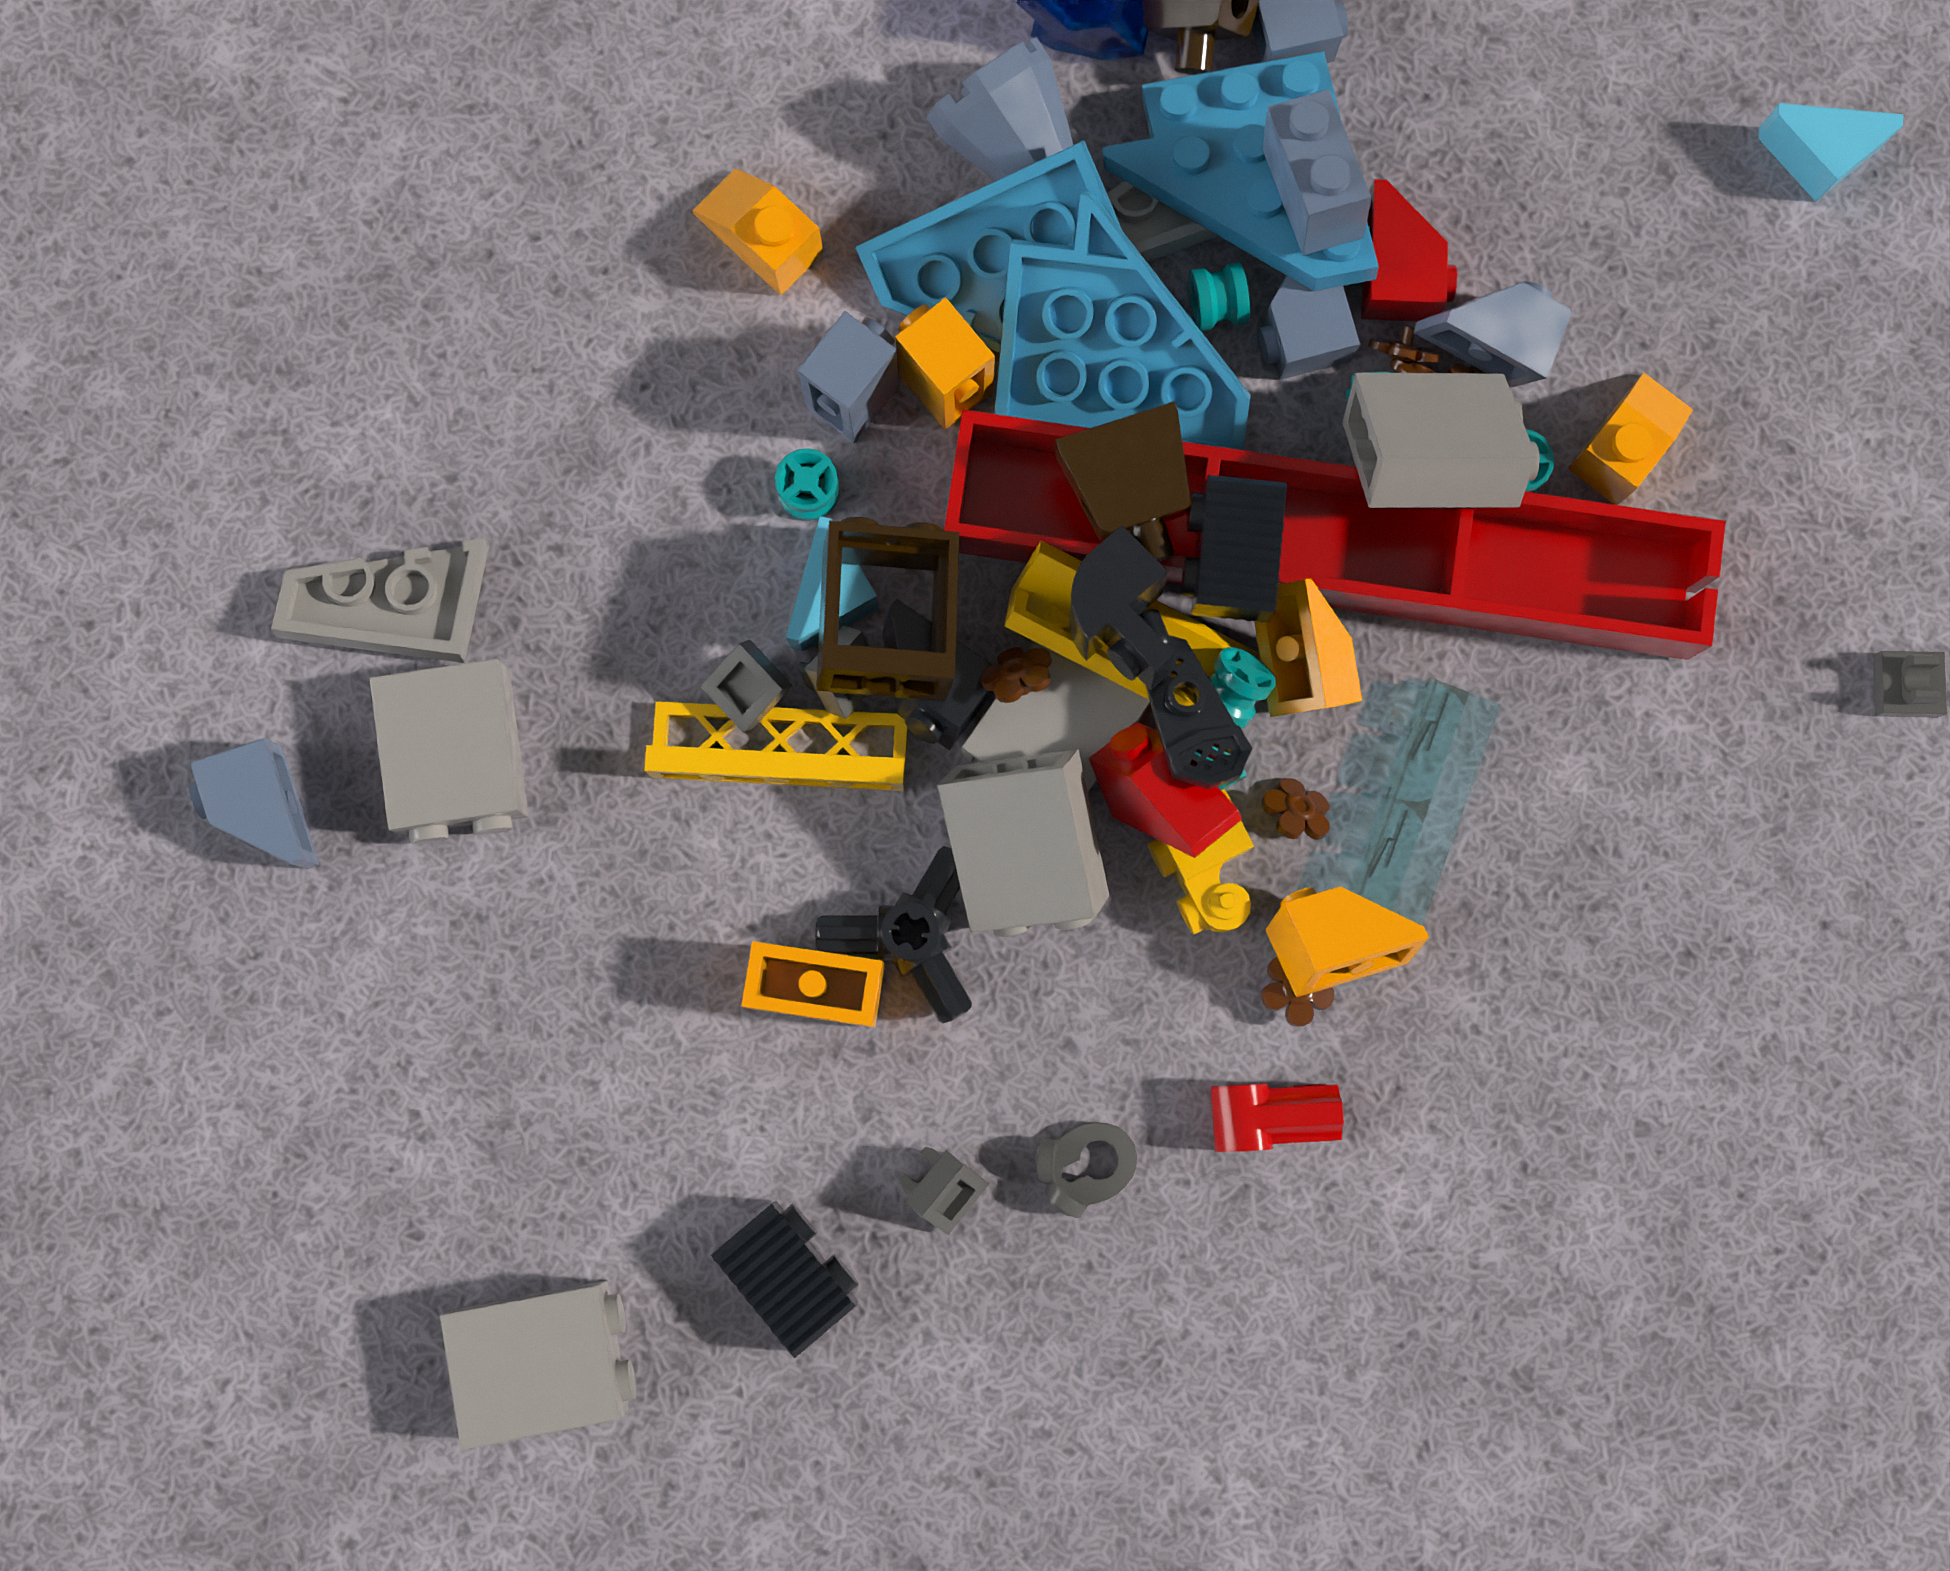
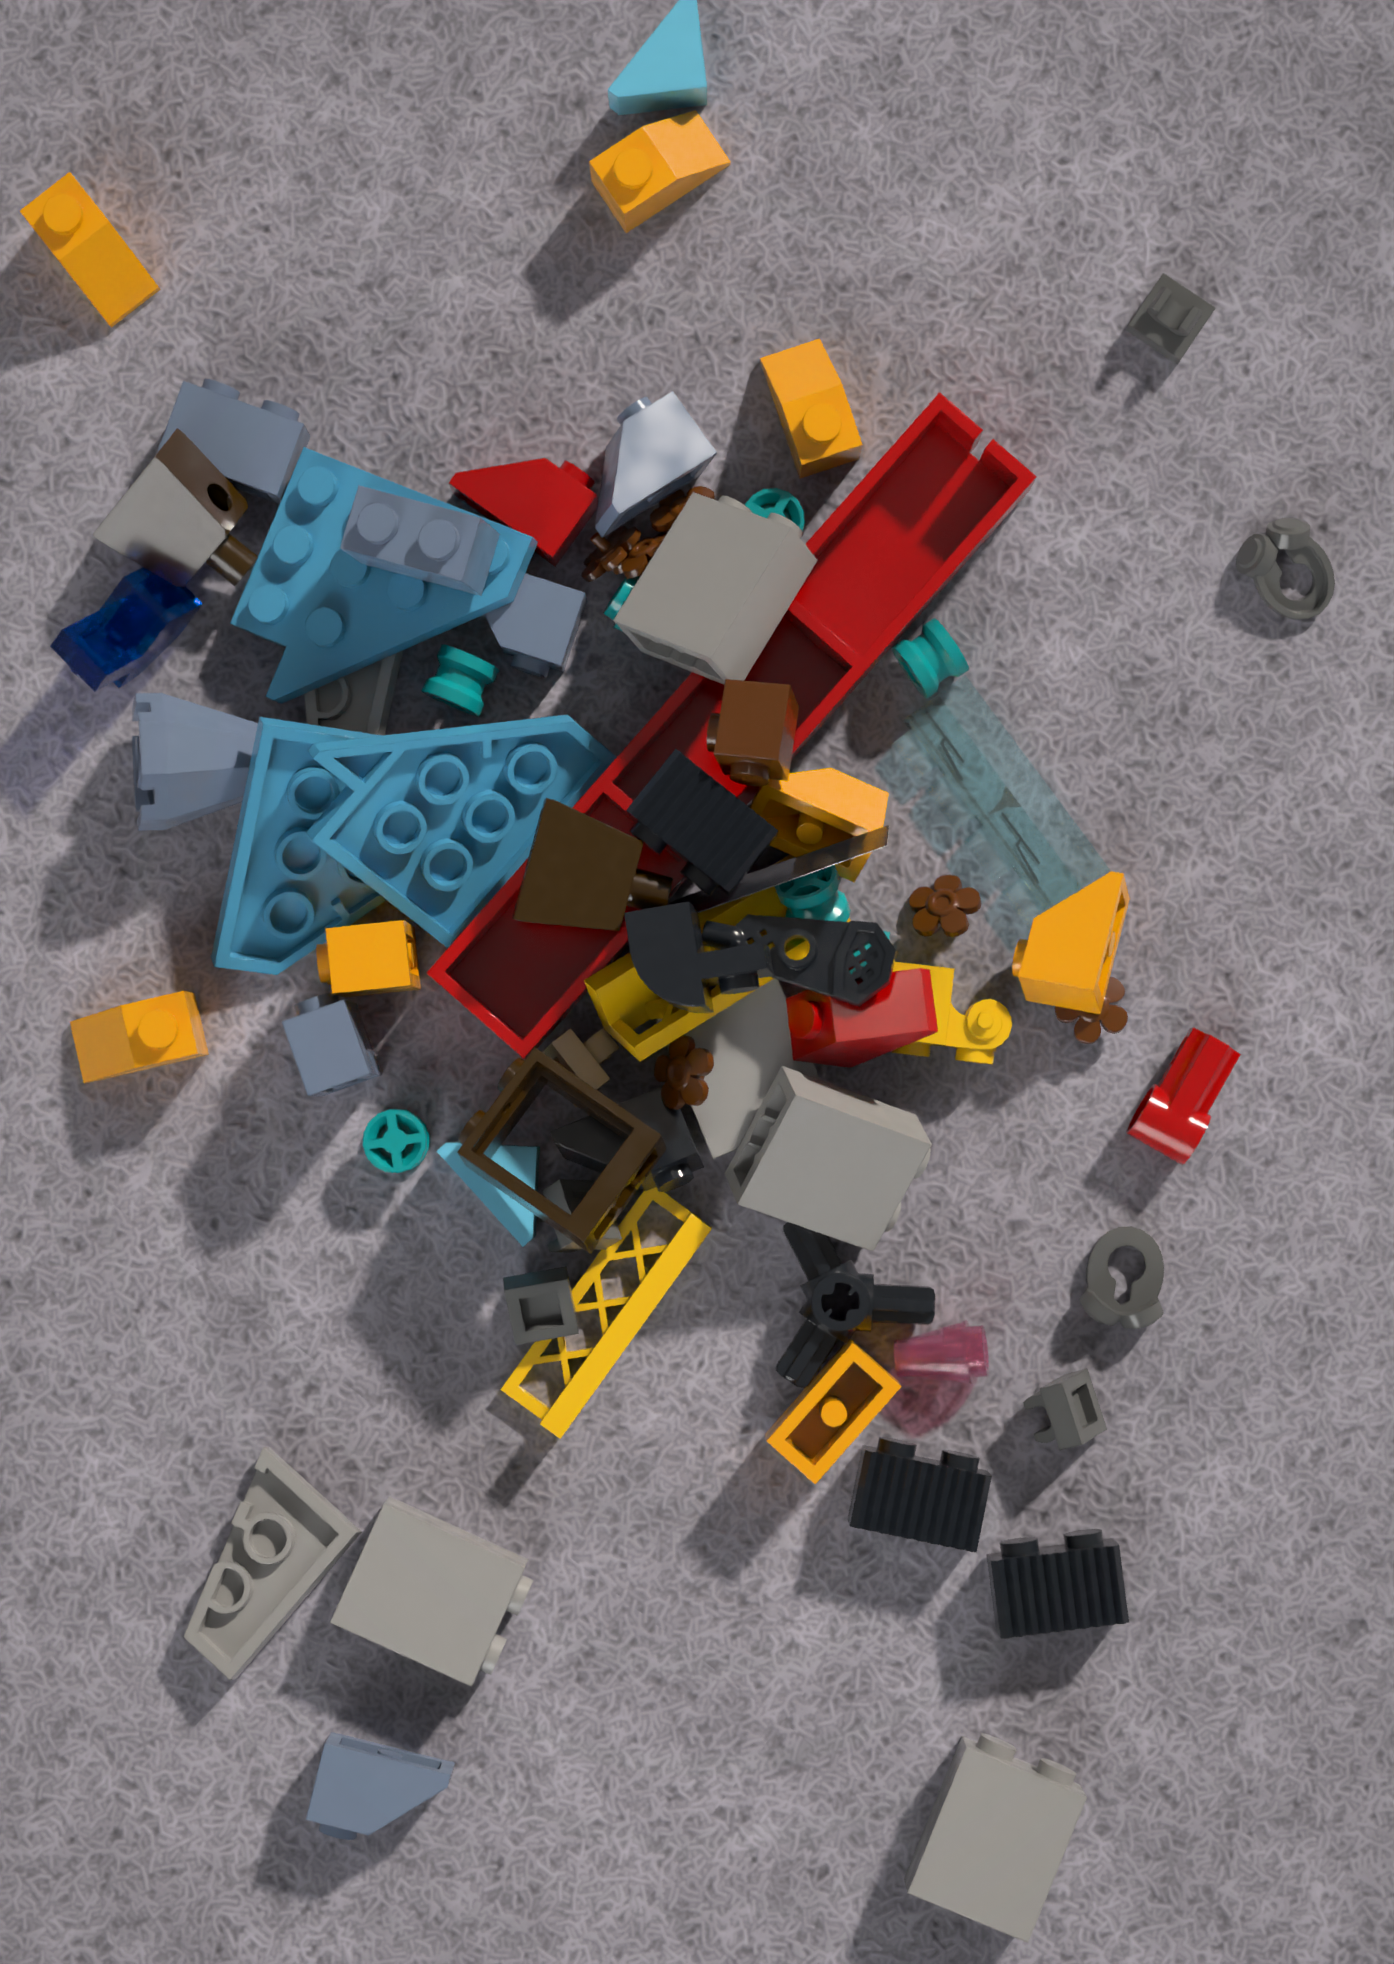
camera: 50 degrees left, 5 degrees up
(788, 1108) = (920, 1495): none -> black brick
(924, 1054) = (944, 1354): none -> clear pink cone
(974, 591) = (585, 1057): none -> tan tile
(1247, 651) = (792, 869): none -> black sticker
(1345, 541) = (754, 731): none -> reddish brown brick
(1496, 664) = (930, 658): none -> teal wheel
(1739, 187) = (656, 167): none -> light orange slope
(1761, 887) = (1257, 561): none -> dark grey piece

